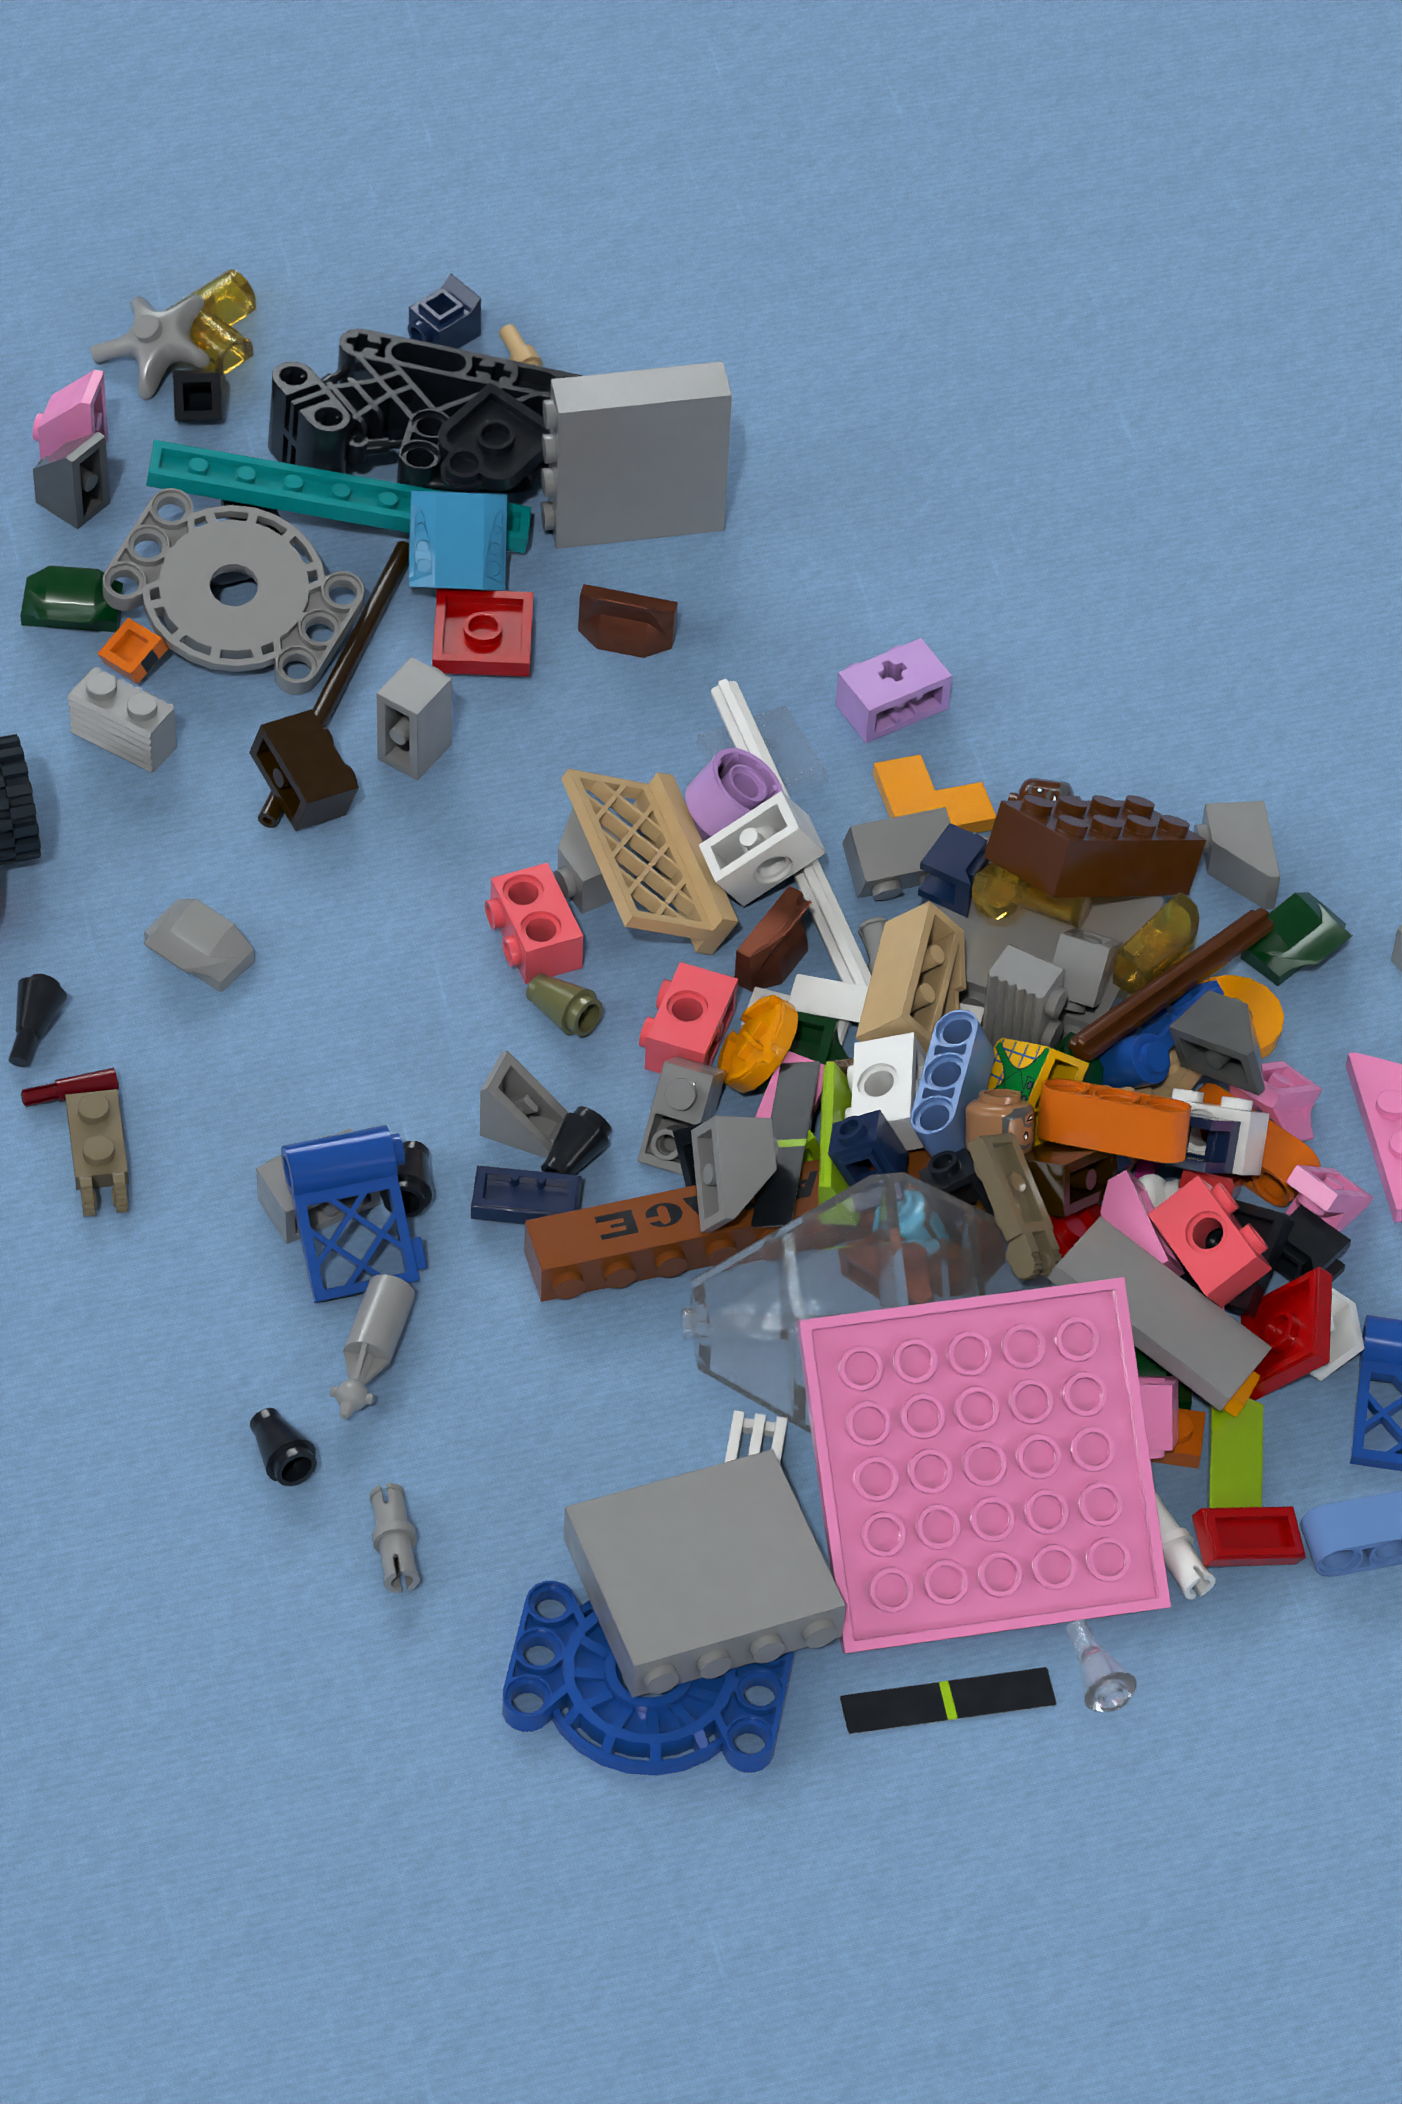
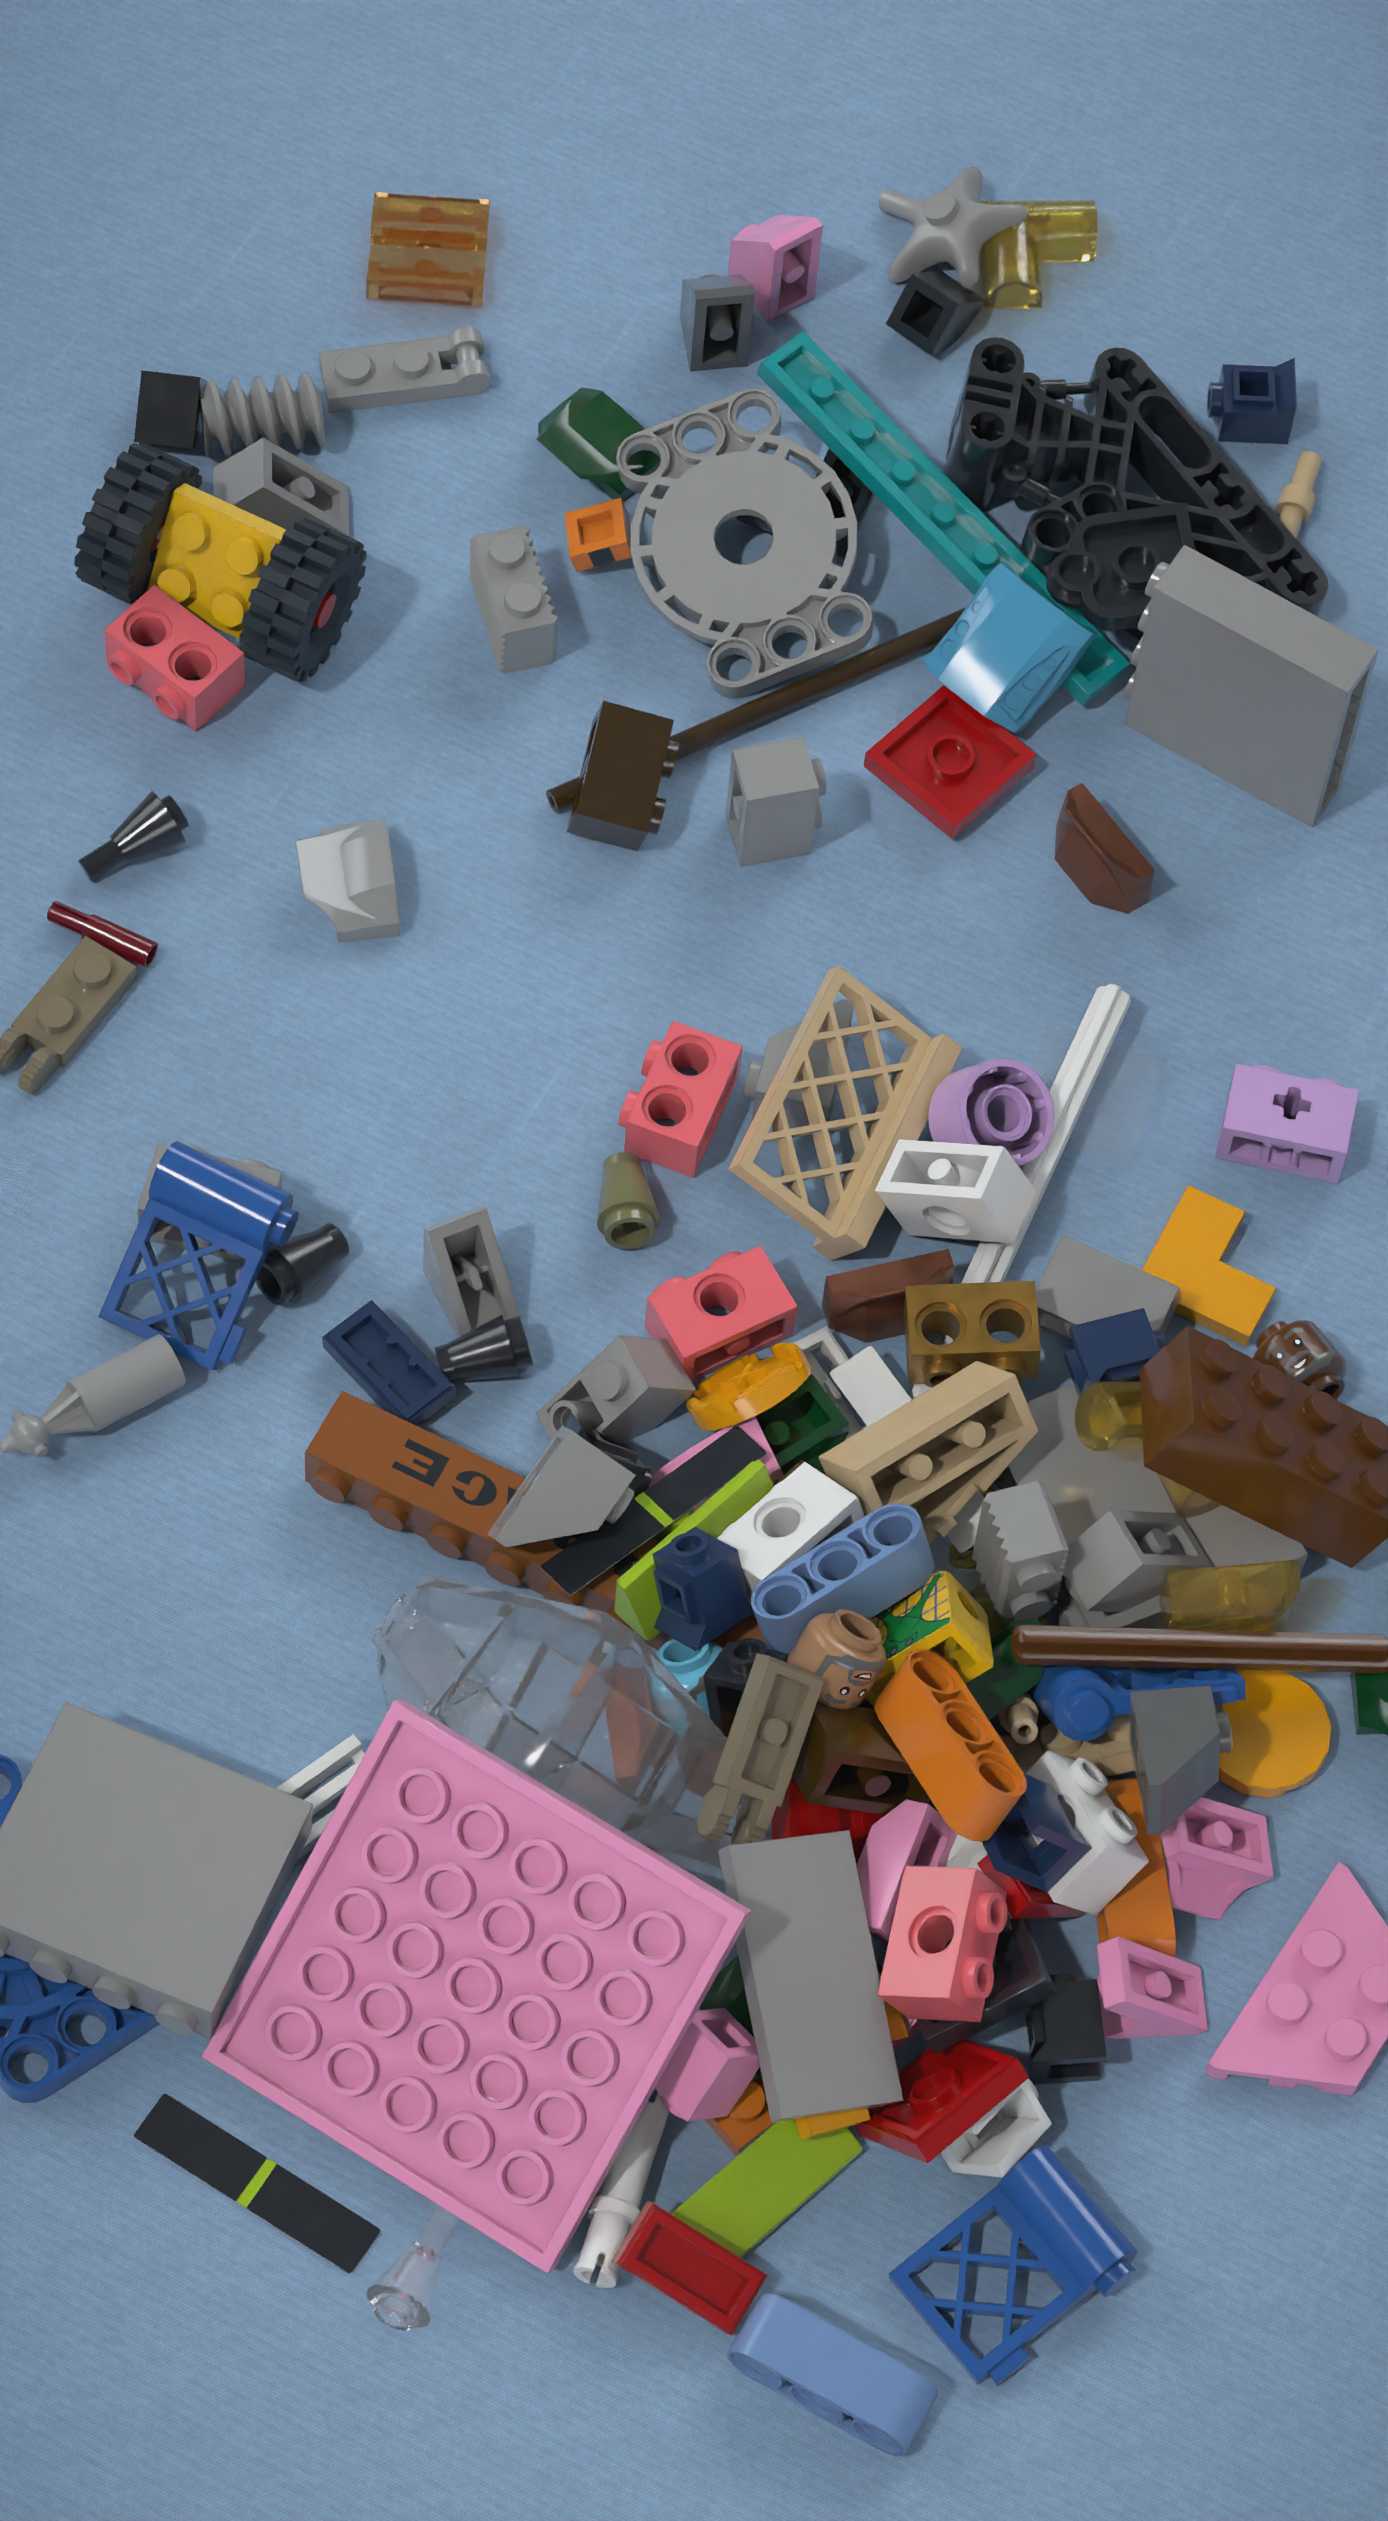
camera: 40 degrees right, 10 degrees up
(849, 918) = (969, 1317): none -> pearl gold brick

